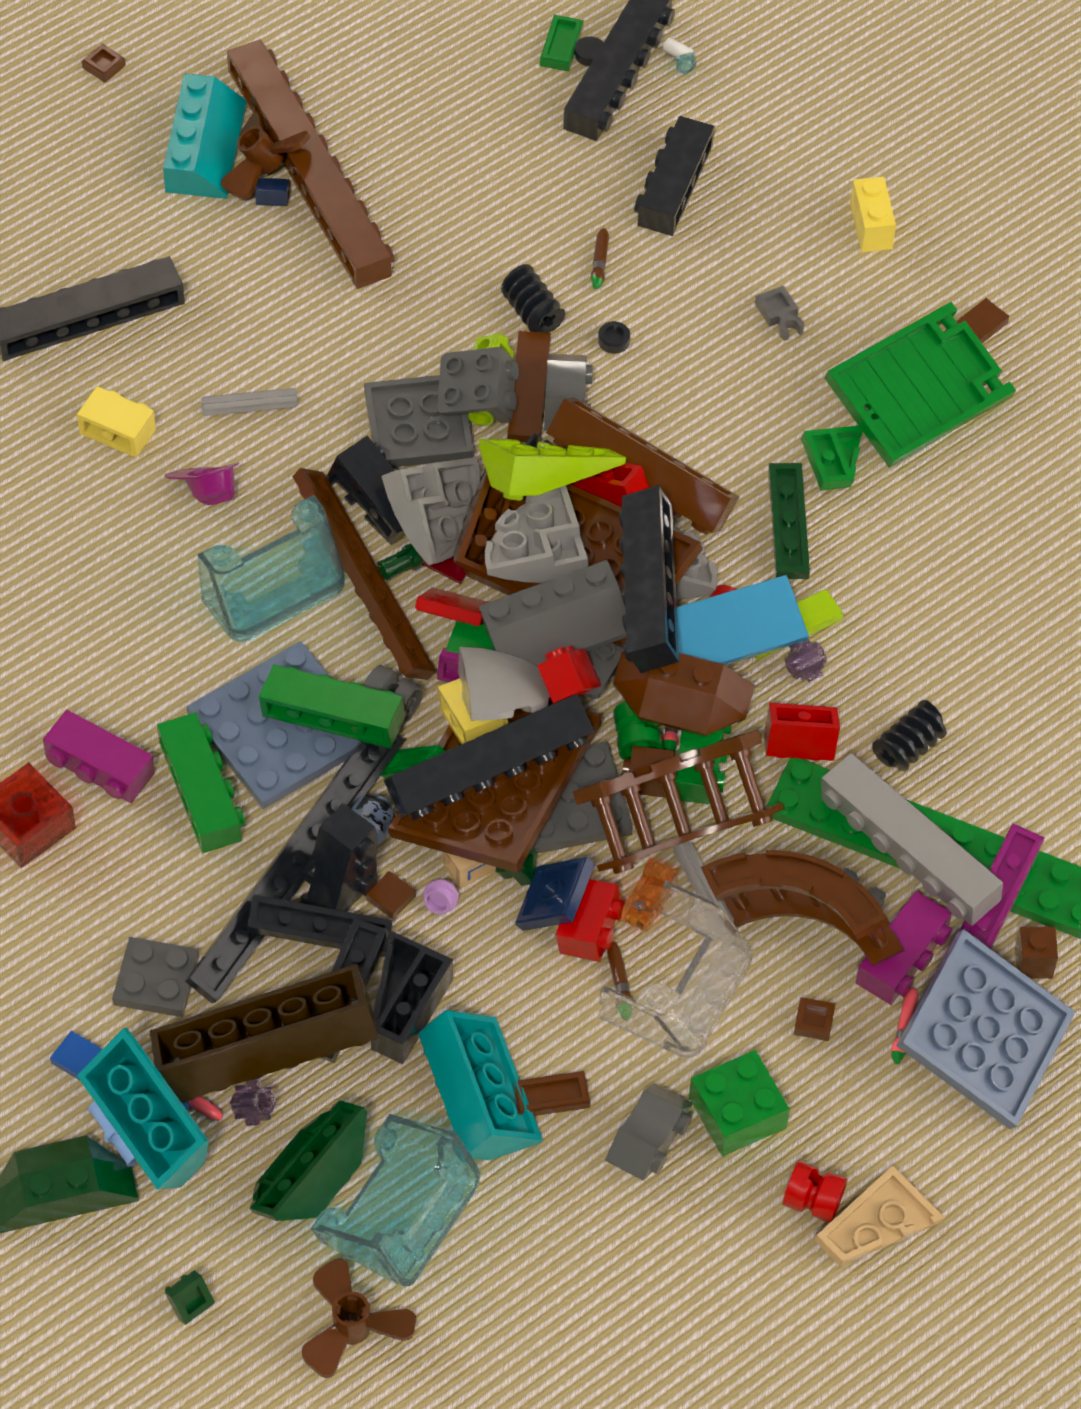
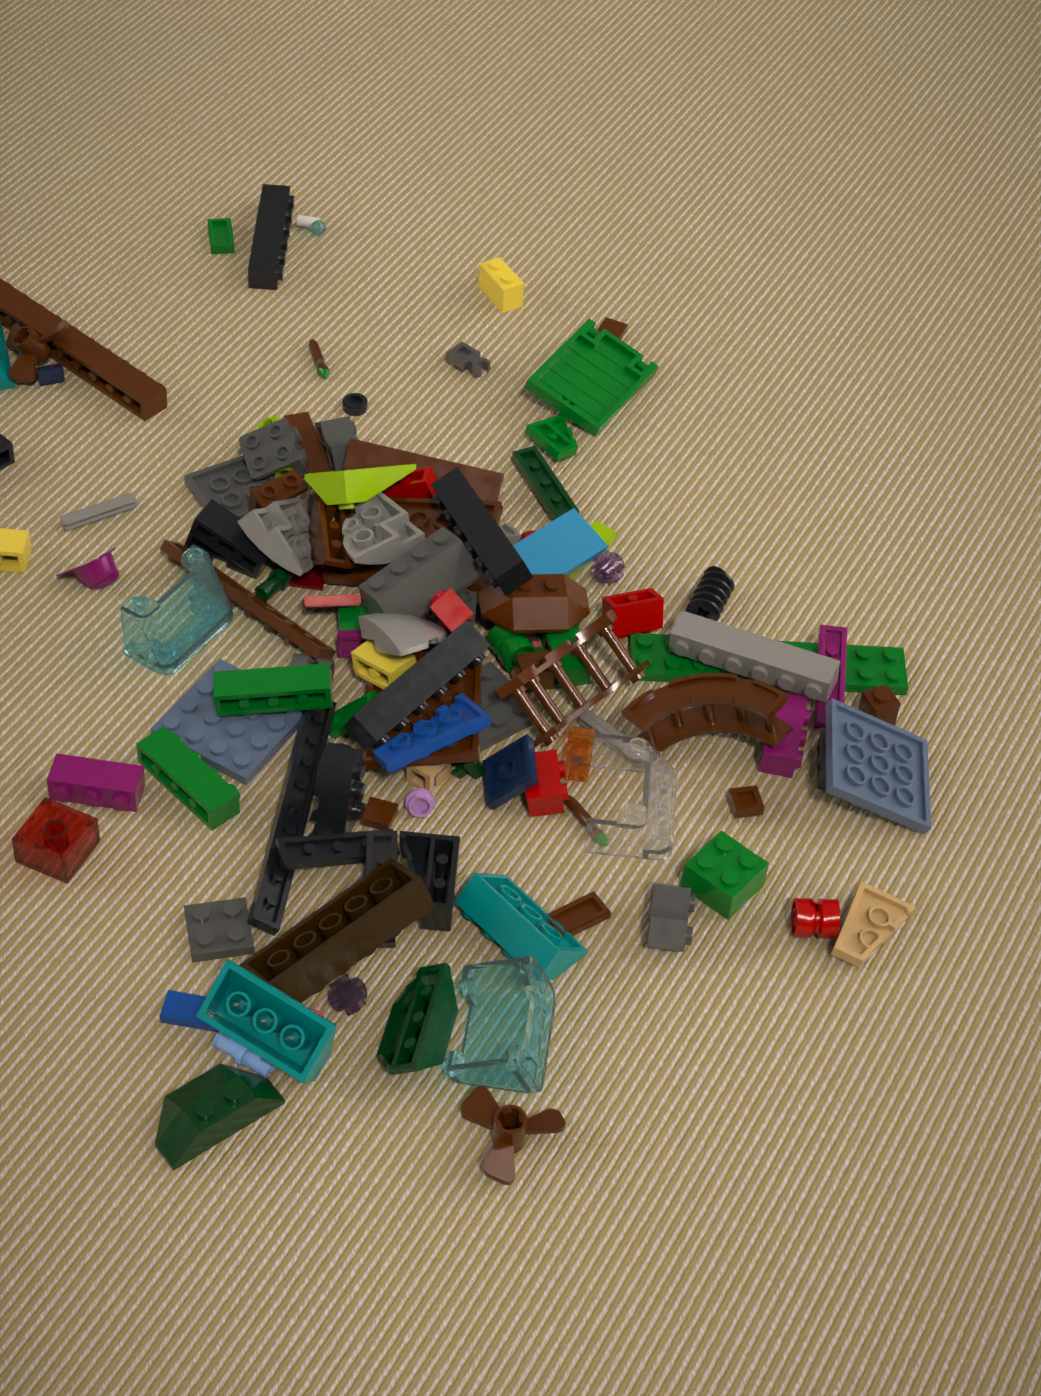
camera: 25 degrees left, 10 degrees down
(189, 1297) = (367, 1159): dark green tile -> none
(450, 444) = (281, 488): none -> reddish brown bracket
(474, 825) = (440, 731): none -> blue wing
(532, 300) = (284, 392): black piece -> none
(586, 49) = (243, 236): black tile -> none
(674, 176) = (346, 294): black brick -> none
(909, 1006) = (811, 786): coral piece -> none

